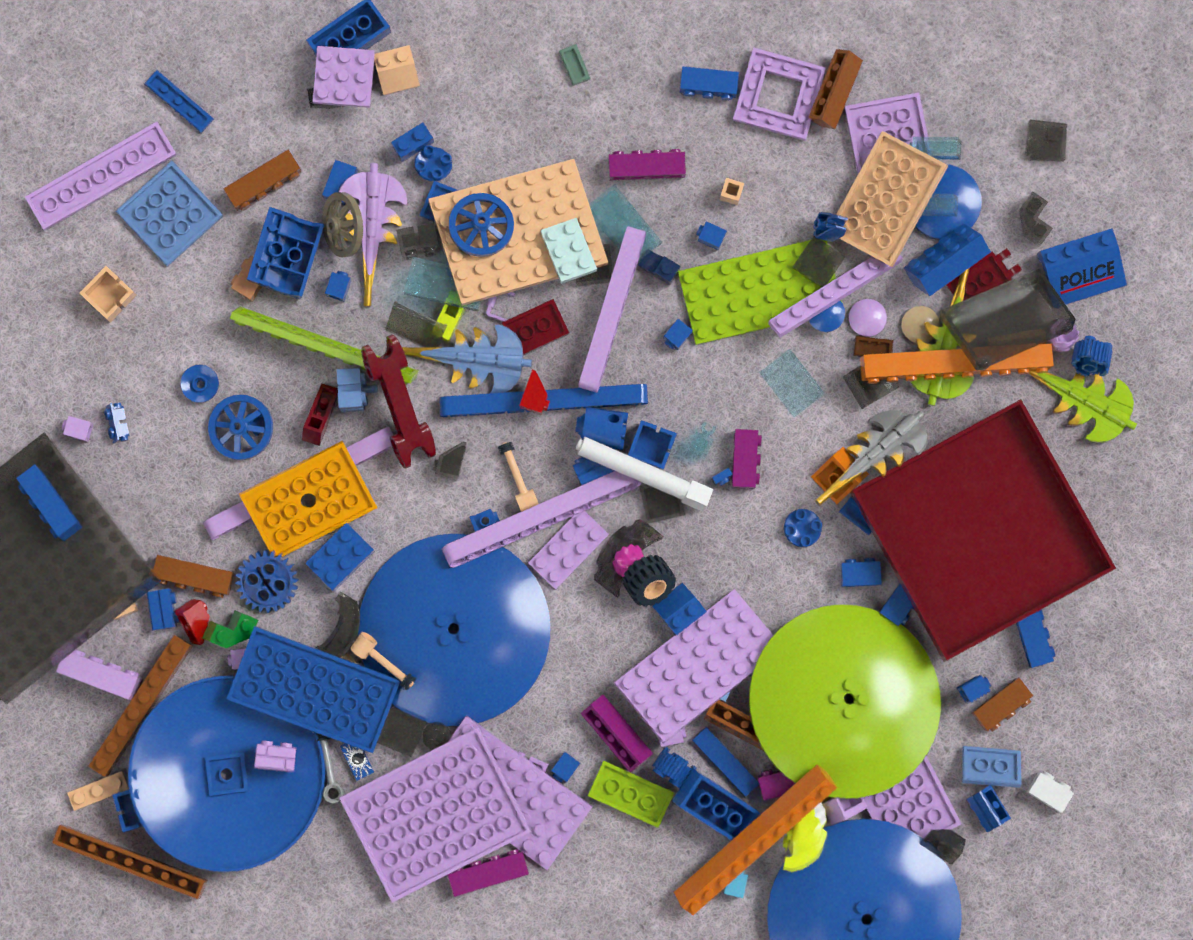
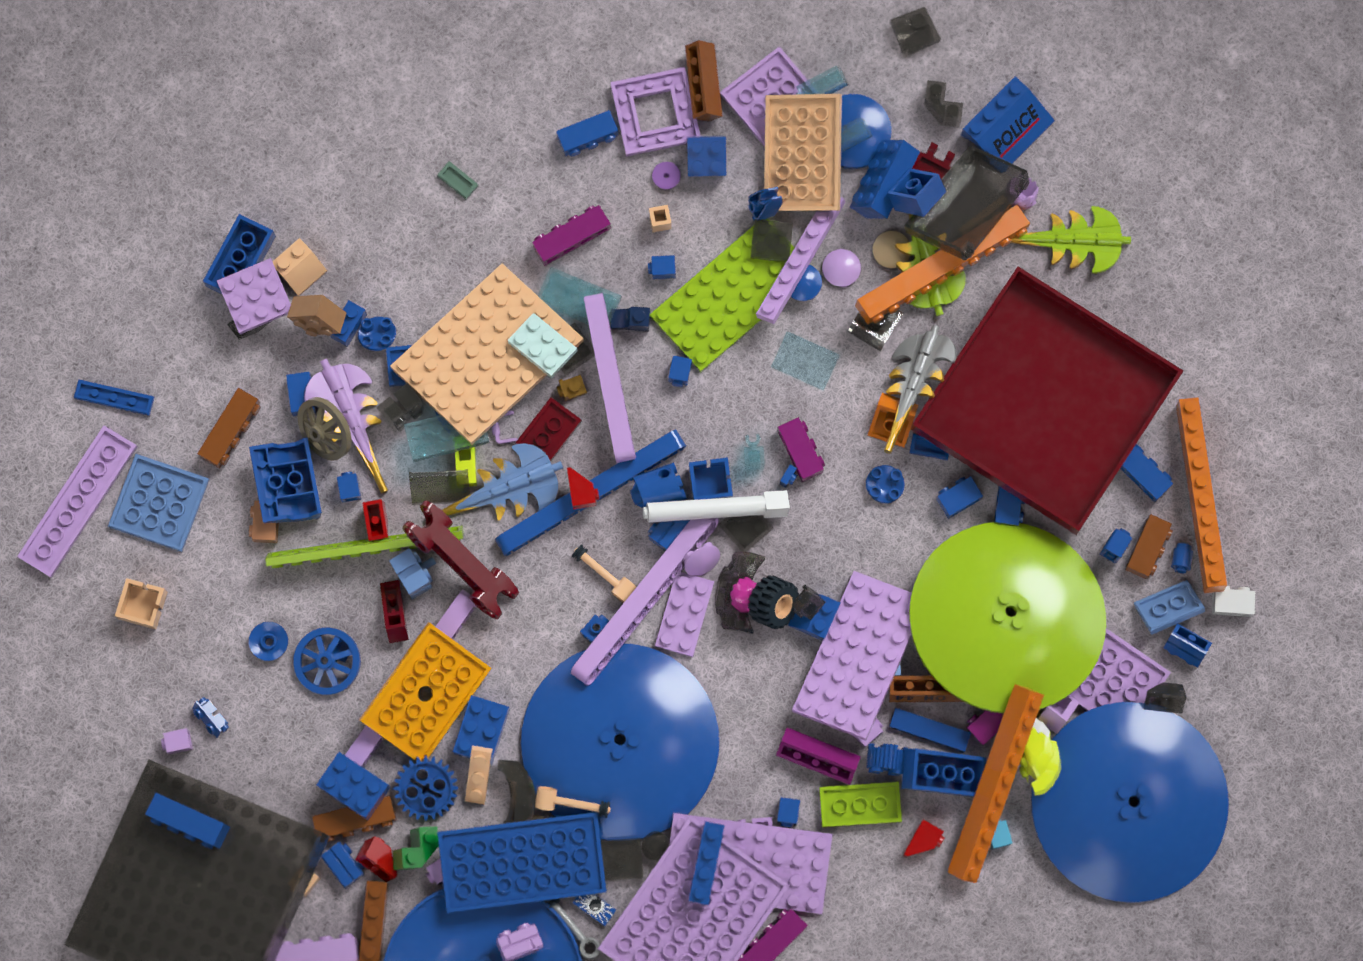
camera: 25 degrees left, 5 degrees down
(204, 548) = (353, 786): none -> blue brick
(316, 594) = (478, 775): none -> light nougat plate
(345, 327) = (376, 519): none -> red slope
(387, 121) = (316, 315): none -> medium nougat brick
(450, 462) = (536, 592): clear smoke slope -> none
(469, 775) = (706, 863): none -> blue brick
(481, 228) = (453, 366): blue wheel -> none
(576, 300) = (571, 388): none -> pearl gold bracket
(607, 510) = (702, 559): none -> lavender dish
(669, 854) = (925, 839): none -> red slope
(678, 597) = (808, 603): none -> clear smoke brick
(758, 149) = (666, 169): none -> medium lavender piece
(802, 157) = (706, 155): none -> blue brick
(870, 345) = (855, 291): reddish brown plate -> none
(967, 287) = (916, 192): none -> blue brick
(1026, 730) = (1182, 558): none -> blue brick
(1072, 684) = (1201, 495): none -> orange brick
(1092, 356) = (1059, 198): blue brick -> none

